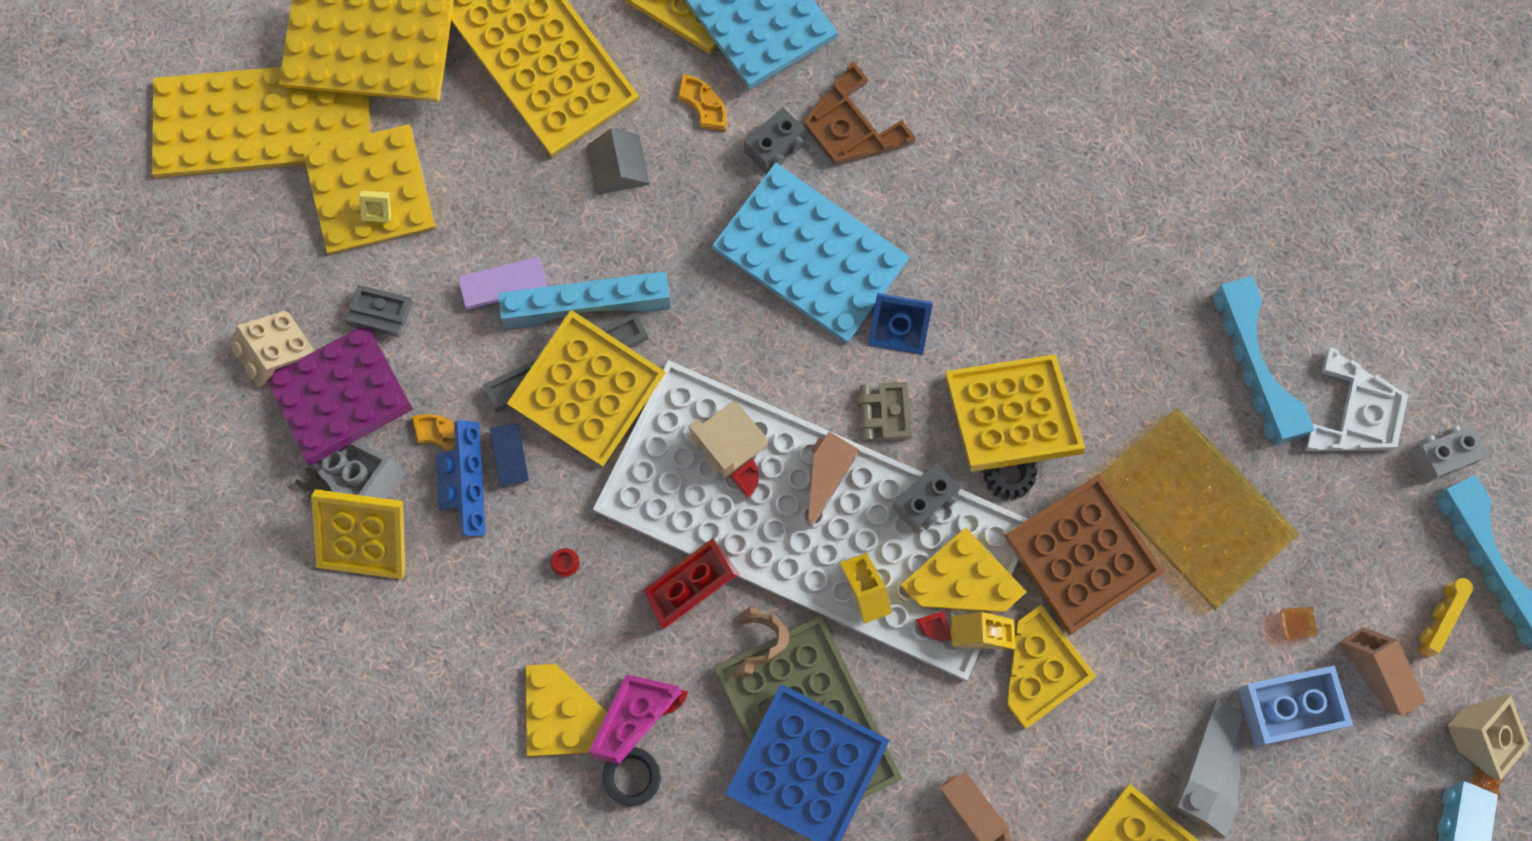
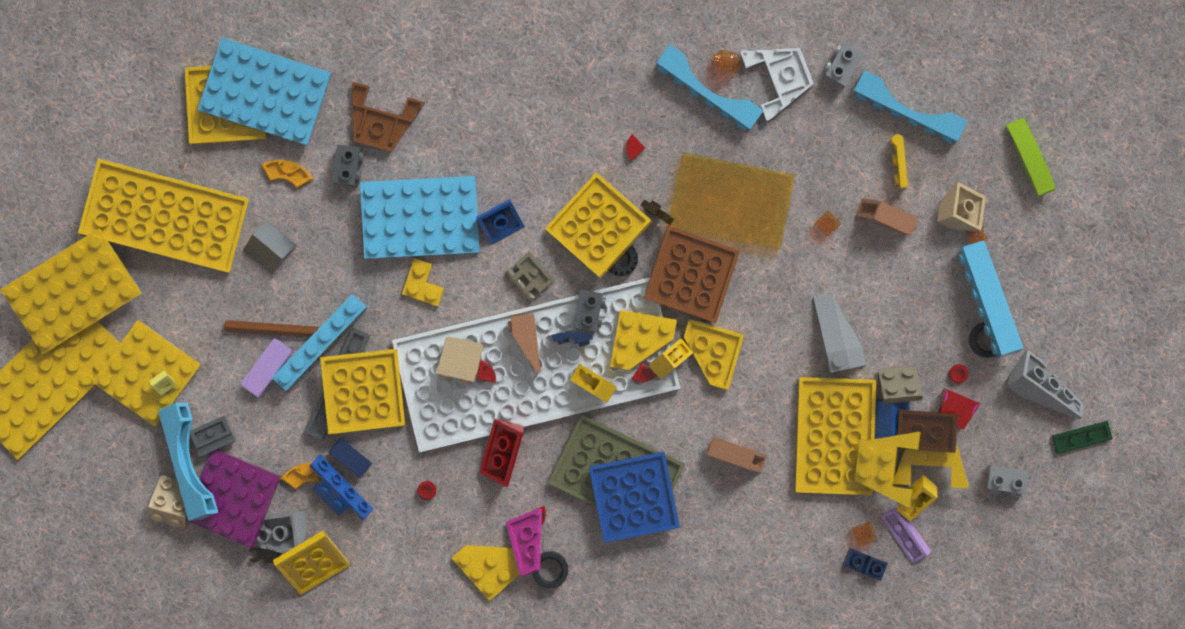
camera: 35 degrees left, 15 degrees up
(298, 356) = (176, 425): none -> medium azure arch
(541, 245) = (270, 328): none -> dark orange axle
(747, 324) = (417, 286): none -> yellow plate
(752, 615) = (545, 441): medium nougat helmet -> none
(890, 522) = (578, 338): none -> dark blue slope
(1094, 449) = (654, 209): none -> dark brown plate
(1120, 362) = (634, 147): none -> red tile
(1294, 706) = (854, 272): light blue brick -> none
(1303, 347) = (726, 62): none -> clear orange head

